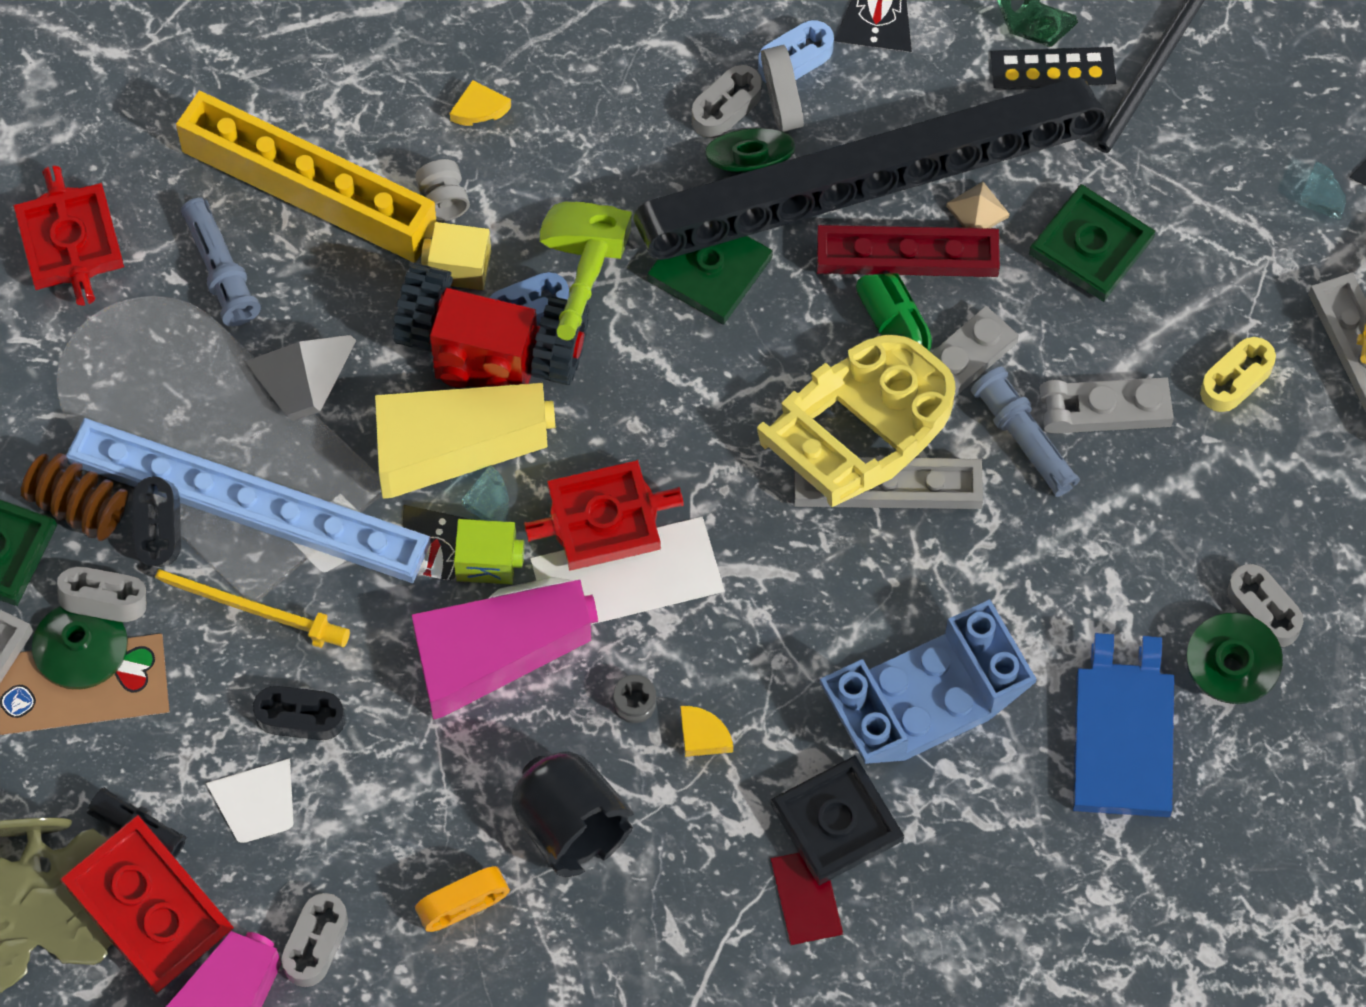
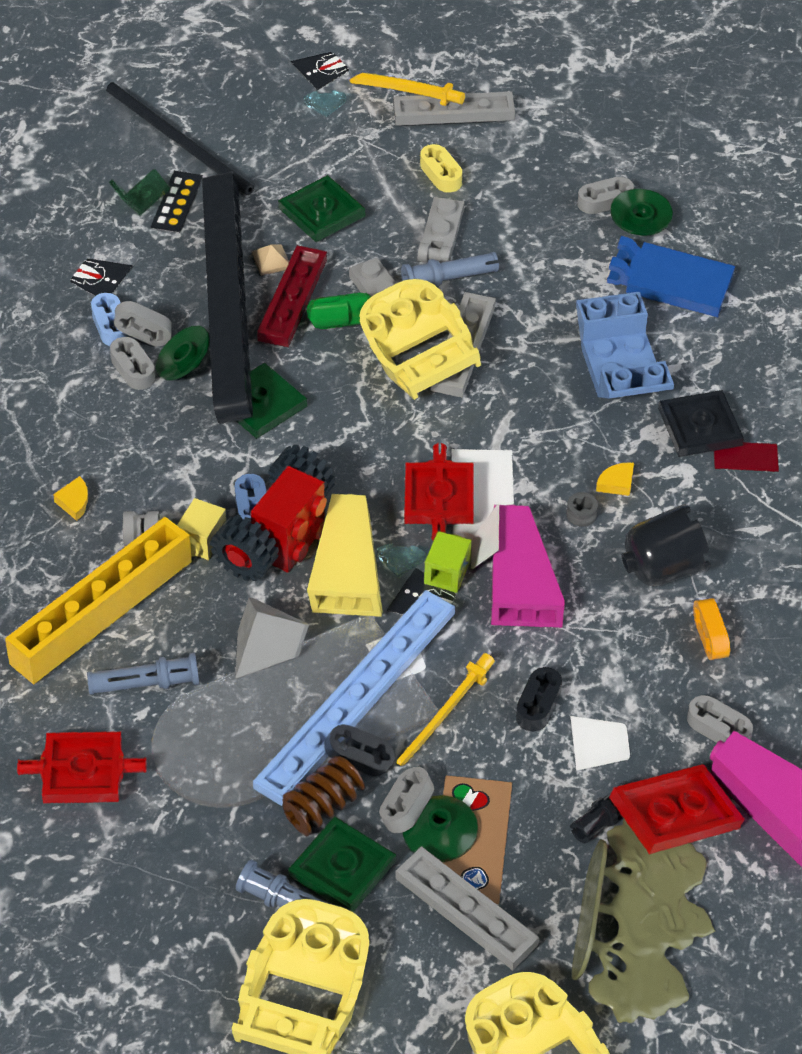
camera: 75 degrees left, 15 degrees down
(590, 232) = (217, 445): lime piece -> none

